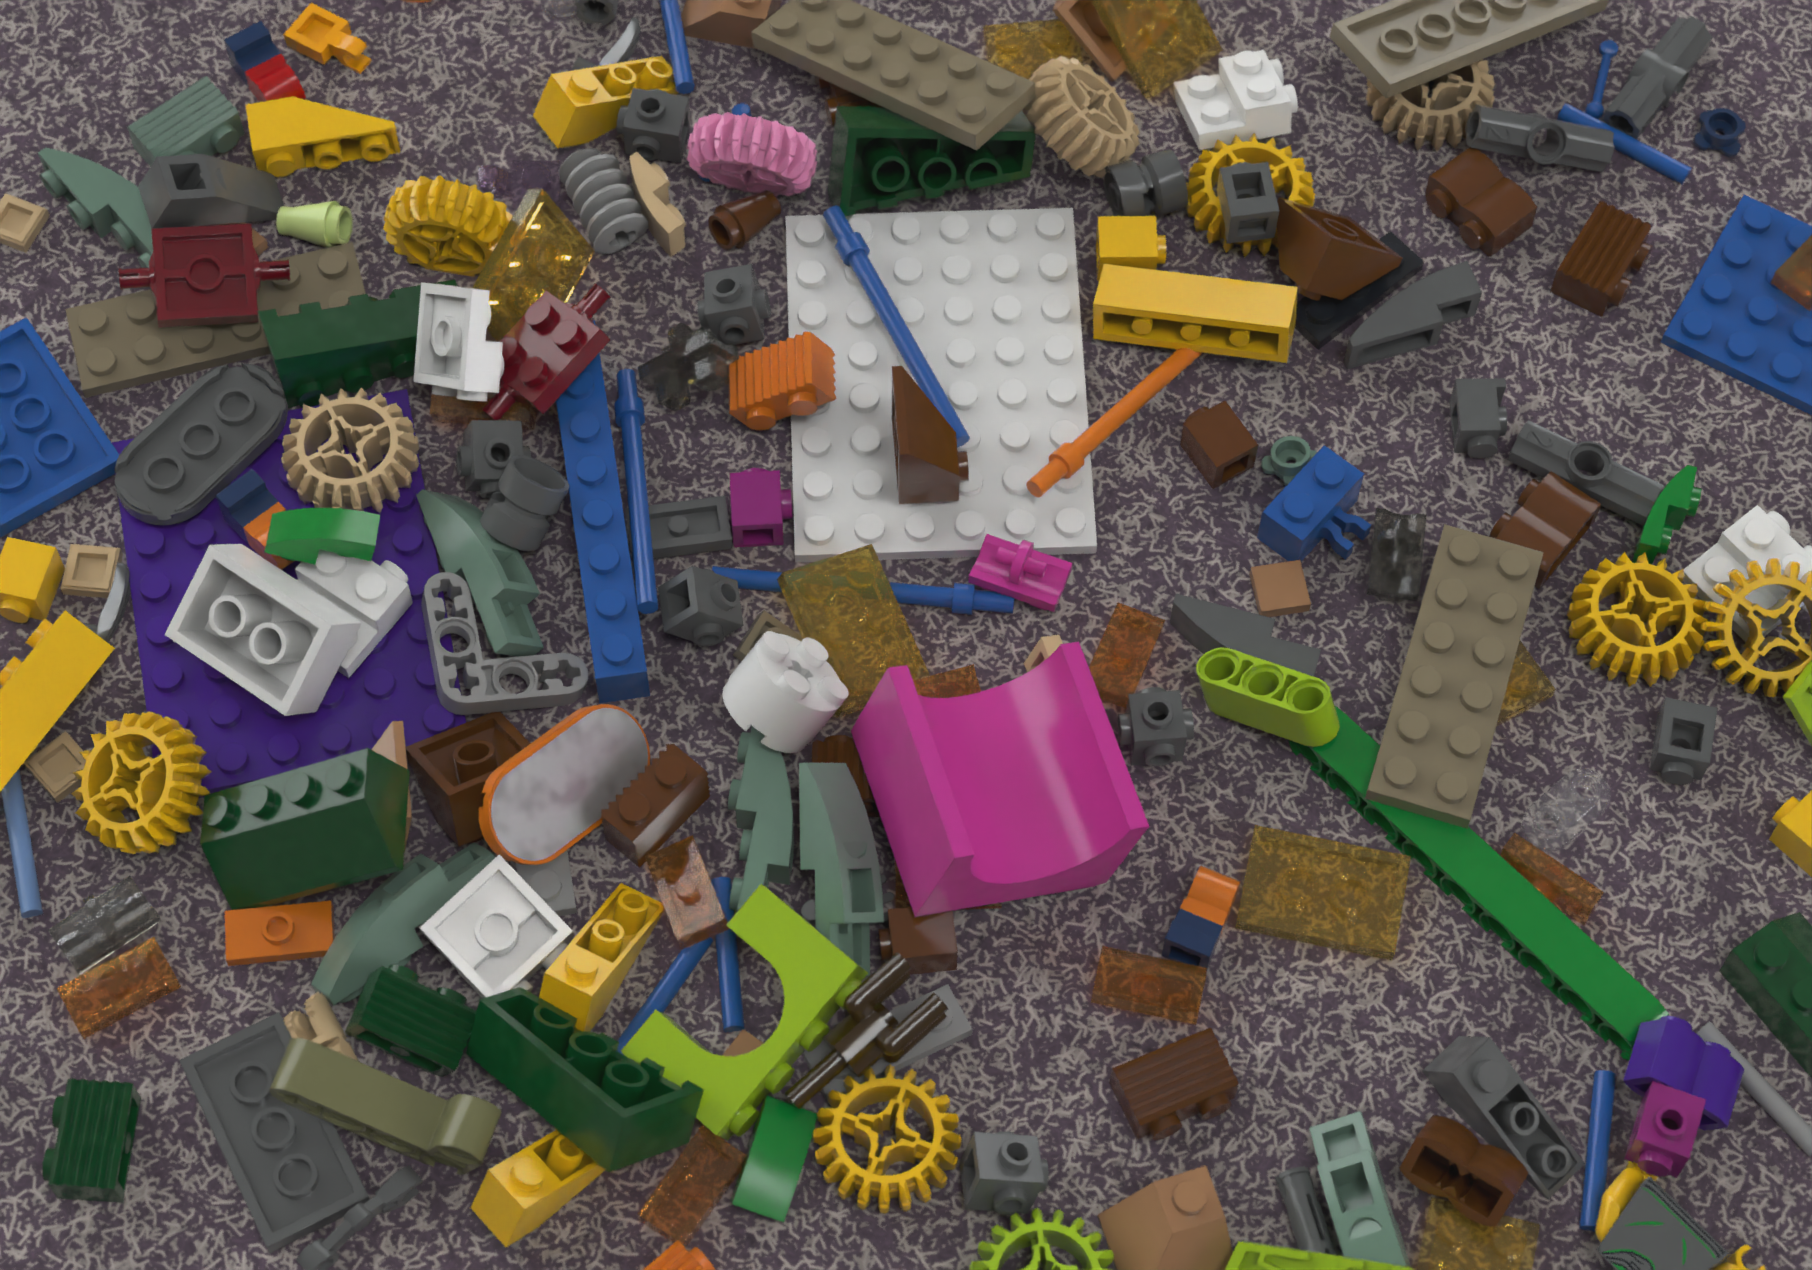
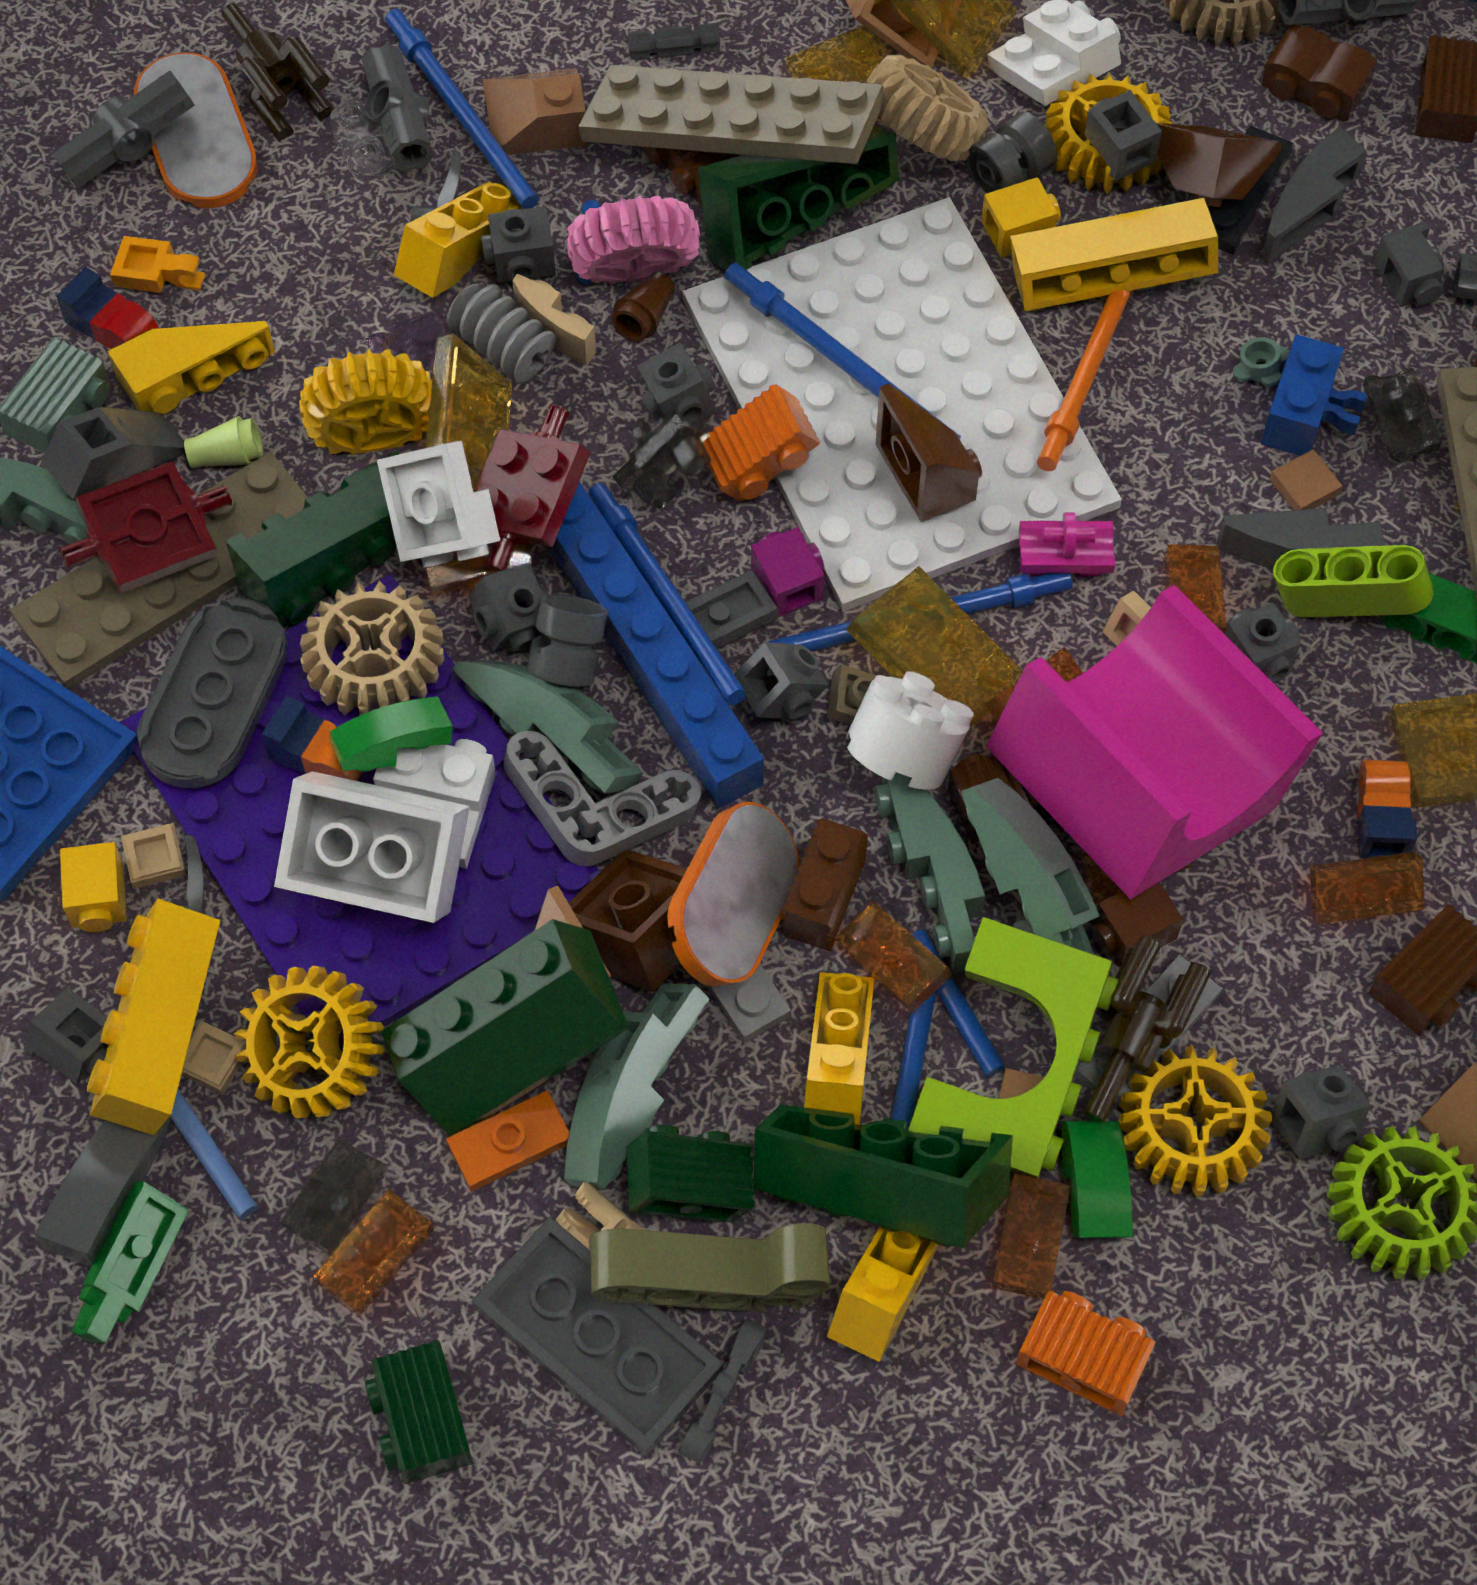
camera: 20 degrees left, 0 degrees up
(497, 931) = (734, 1060): white plate -> none
(1218, 443) = (1189, 367): reddish brown brick -> none

